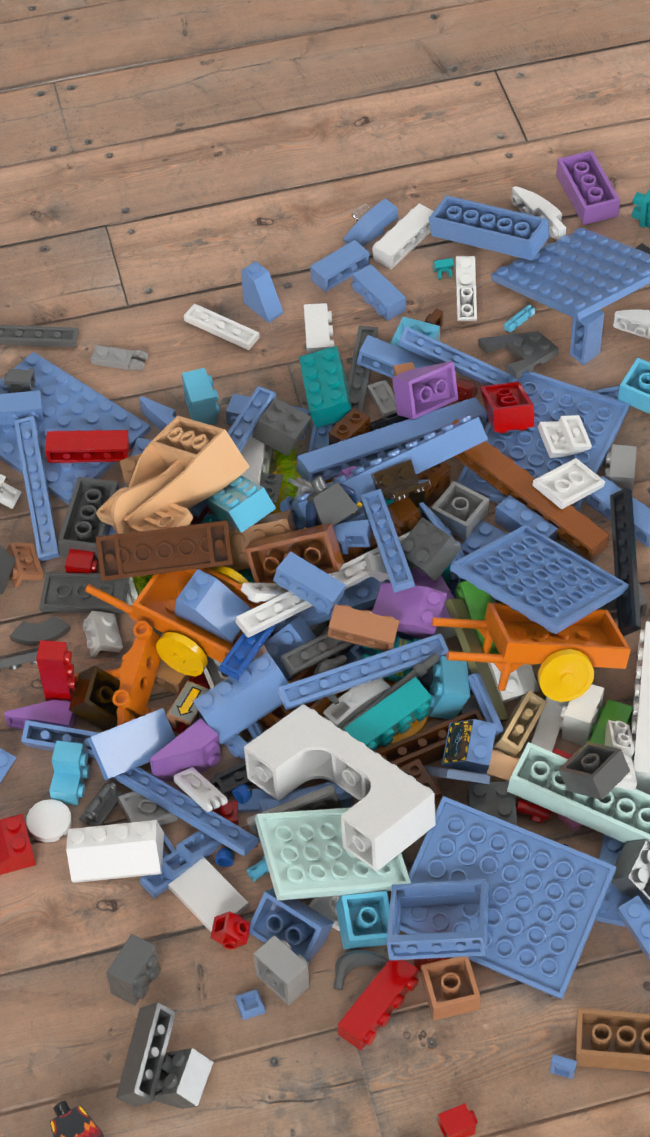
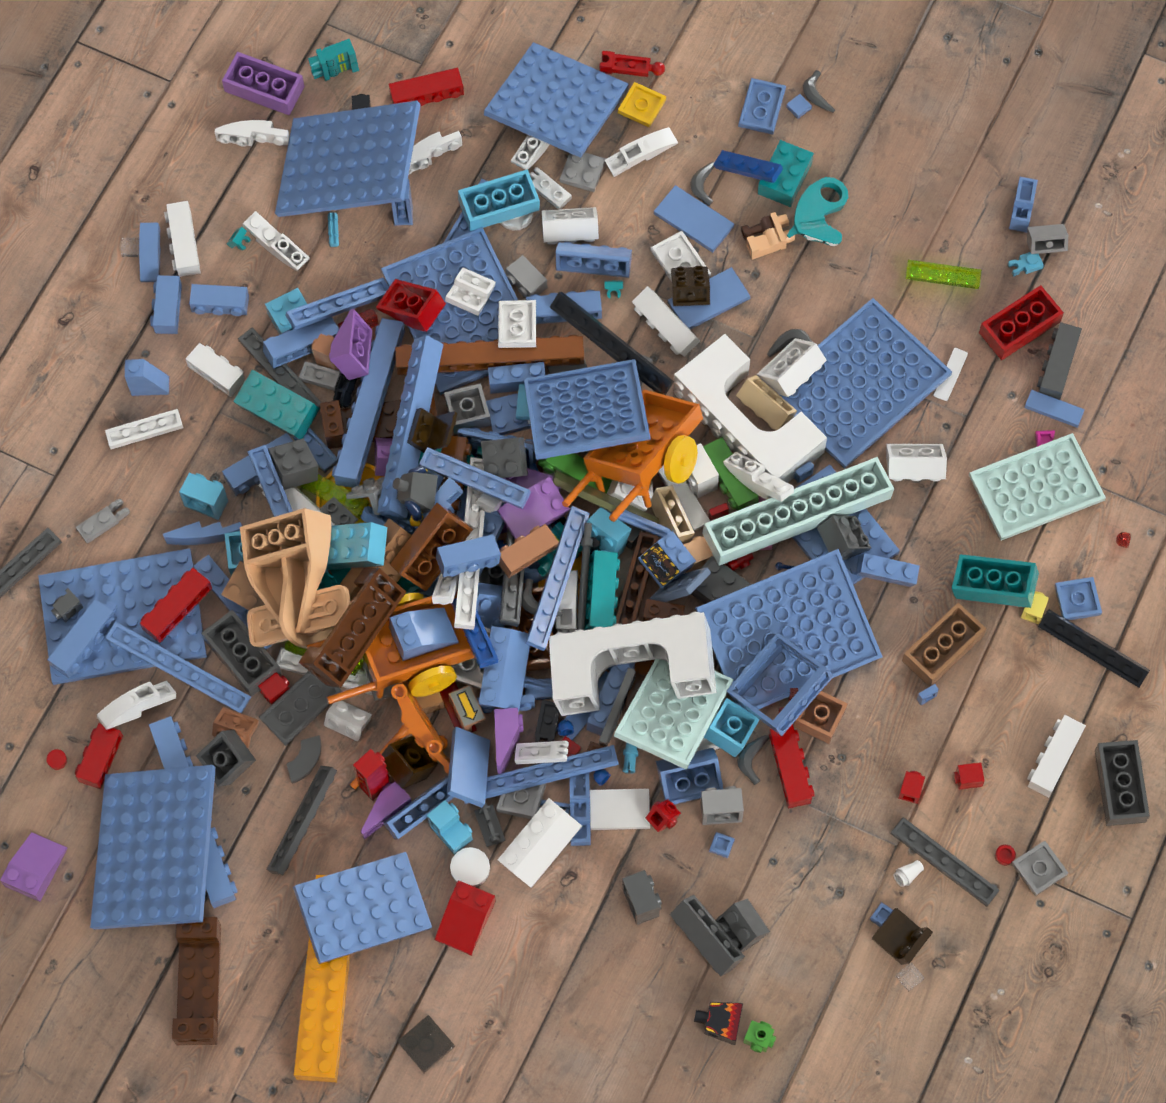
camera: 50 degrees left, 15 degrees up
(435, 318) = (282, 285): reddish brown plate -> none
(489, 227) = (239, 179): medium blue brick -> none
(527, 347) = (367, 246): dark grey wing -> none
(594, 770) = (768, 503): dark grey brick -> none

